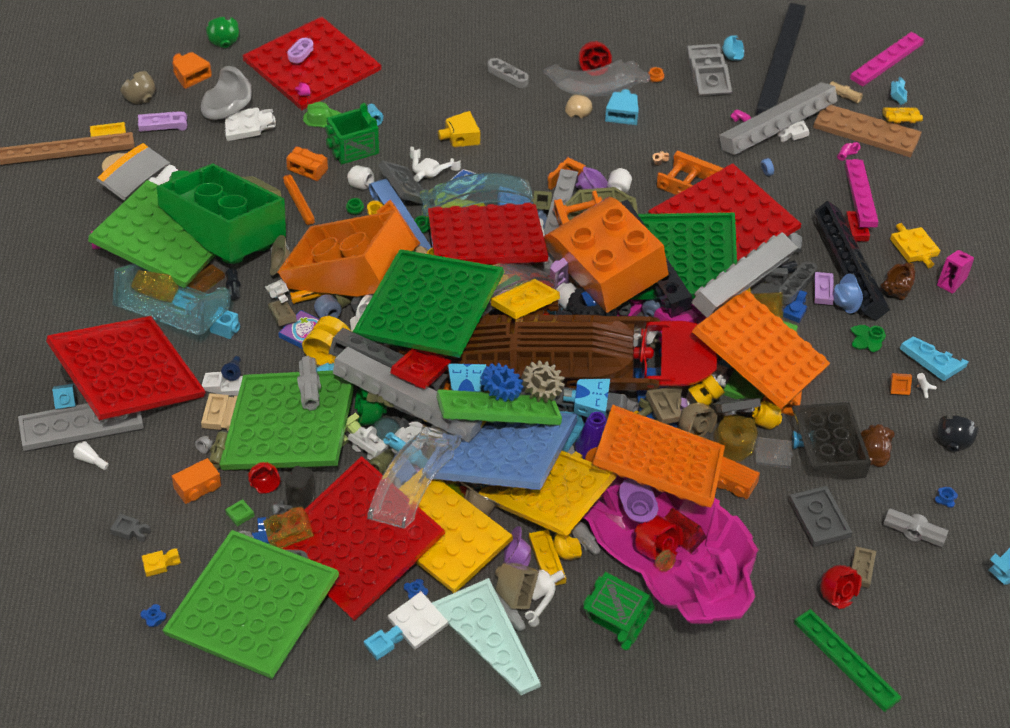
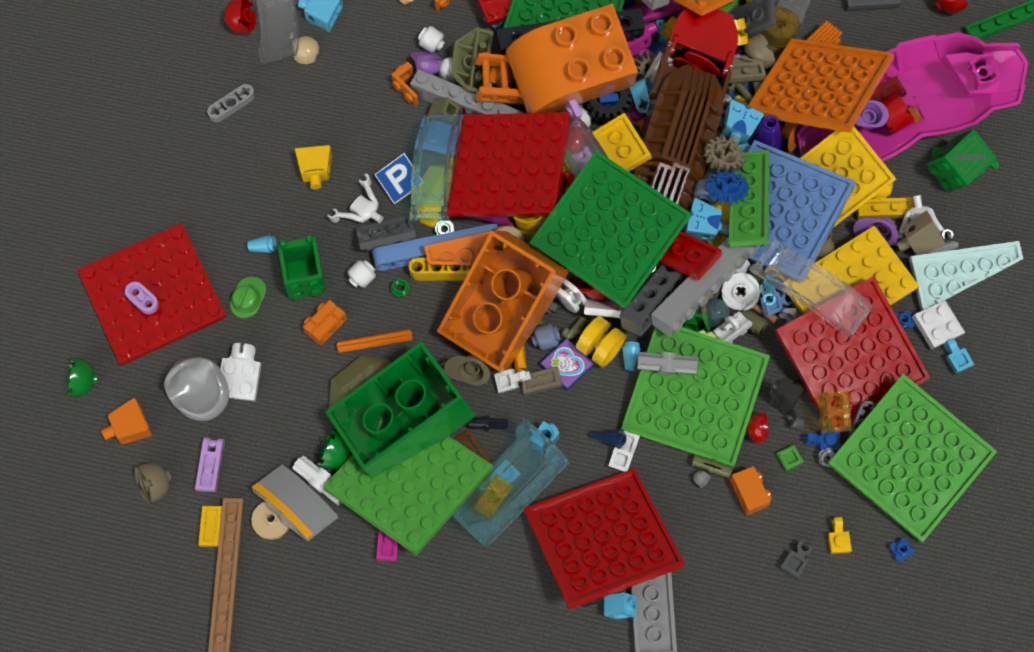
camera: 75 degrees left, 20 degrees up
(85, 453) = (694, 593): white cone -> none
(218, 411) = (663, 458): tan plate -> none
(303, 89) = (210, 307): dark pink piece -> none

